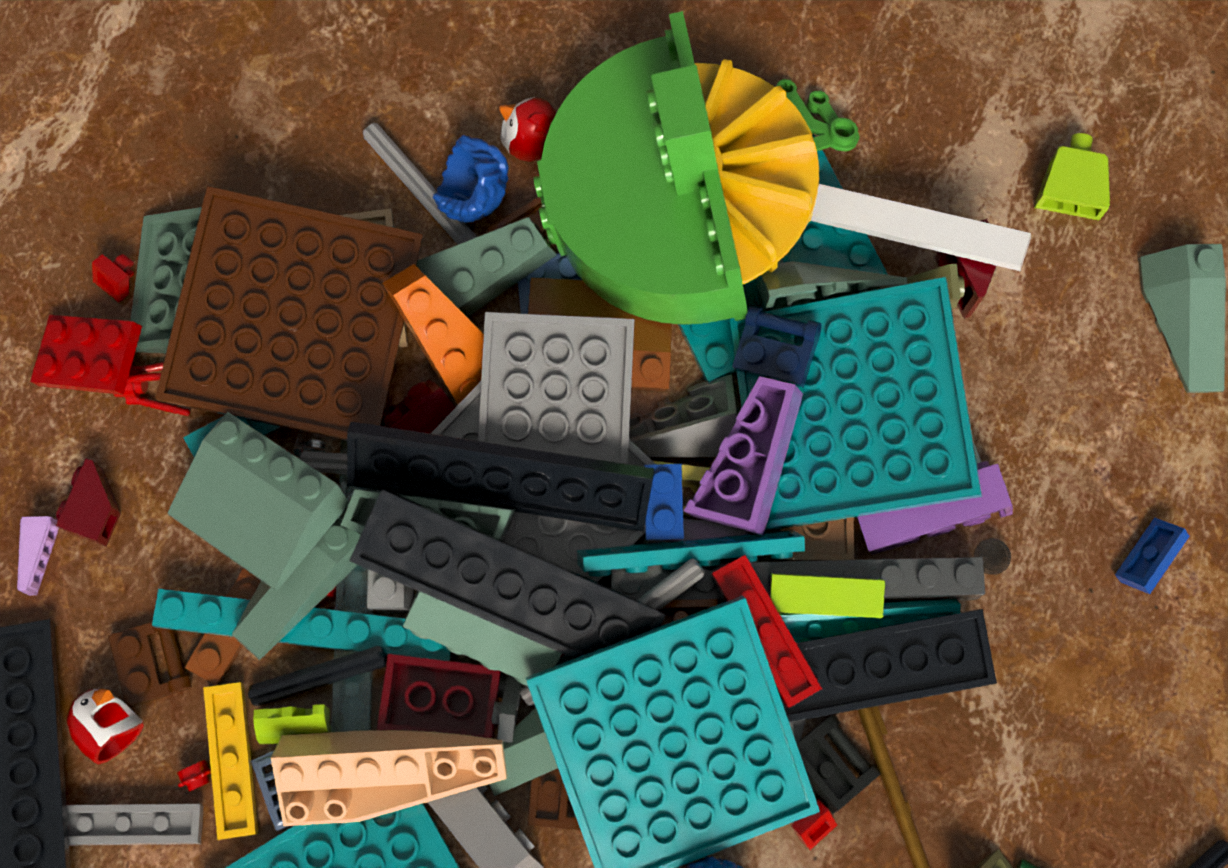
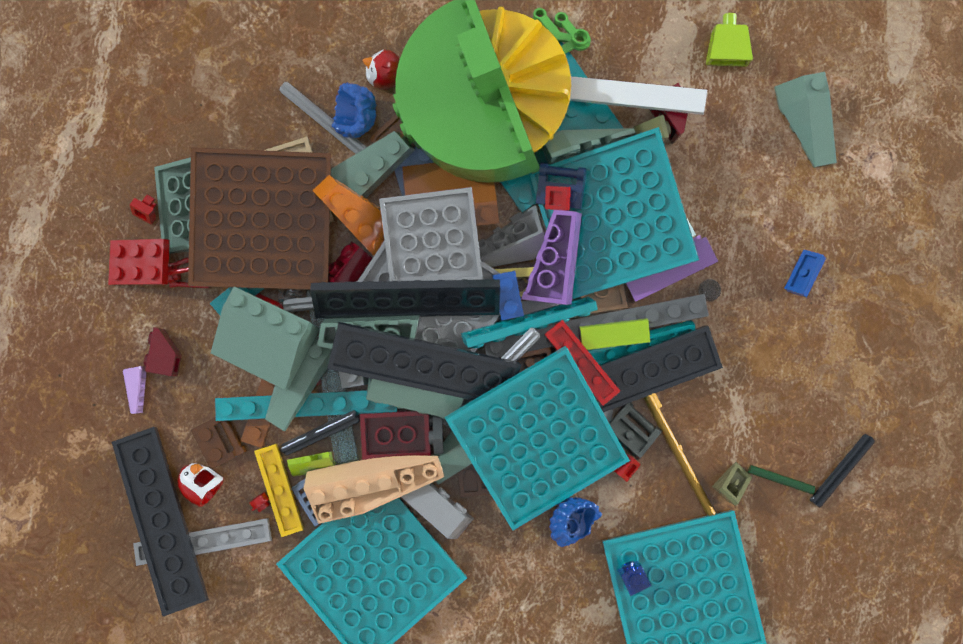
camera: 10 degrees left, 10 degrees up
(768, 360) = (557, 198): none -> red plate

